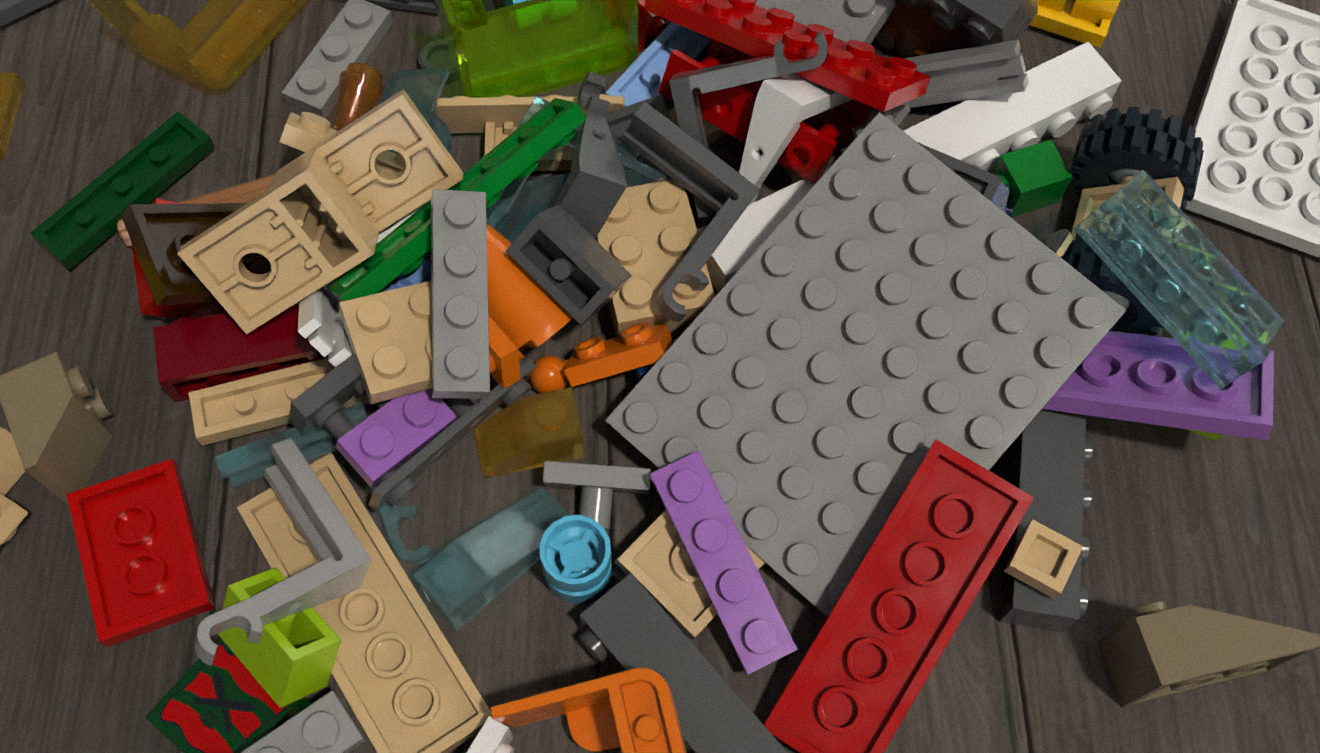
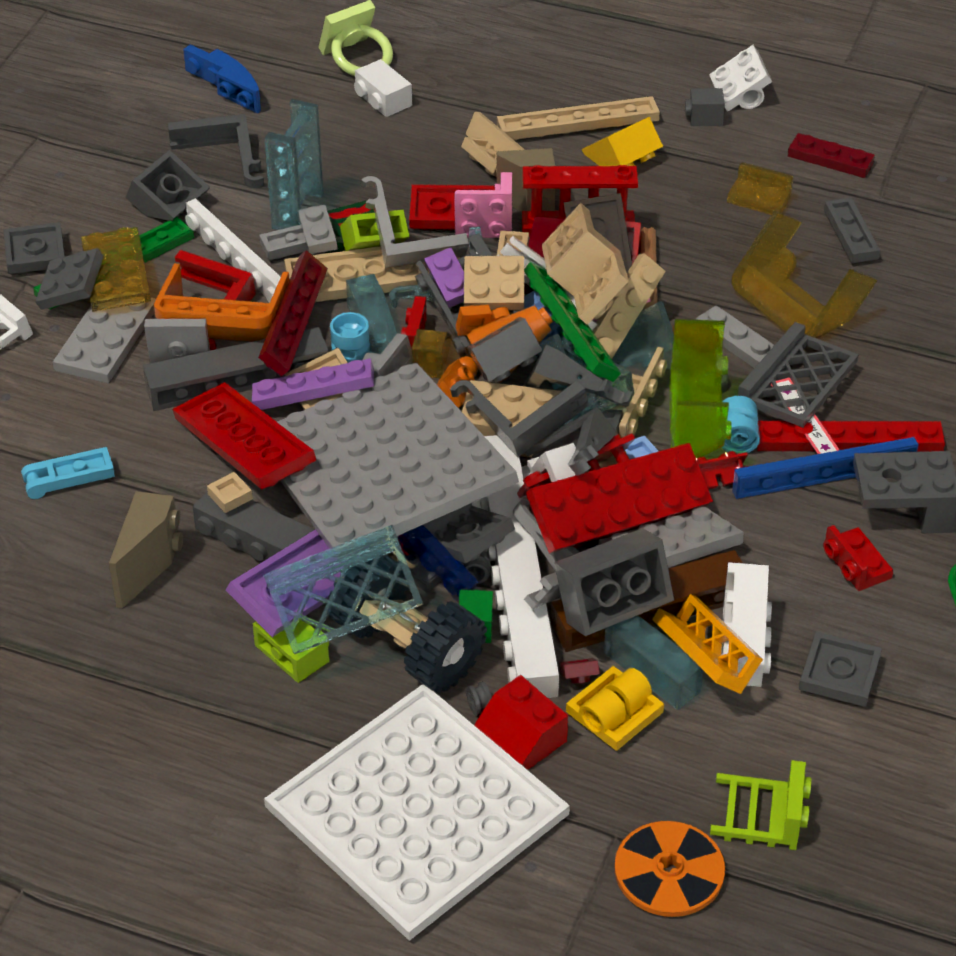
camera: 115 degrees right, 20 degrees down
(103, 318) = (569, 177): none -> red fence
(131, 180) = (676, 235): dark green plate -> none
(146, 436) = (485, 209): none -> bright pink bracket
(459, 295) = (503, 293): light grey plate -> none
(507, 475) = (415, 318): none -> red plate
(578, 657) = (293, 313): none -> dark red plate
(1043, 41) = (579, 670): none -> dark red plate
(1165, 68) = (524, 722): none -> red slope

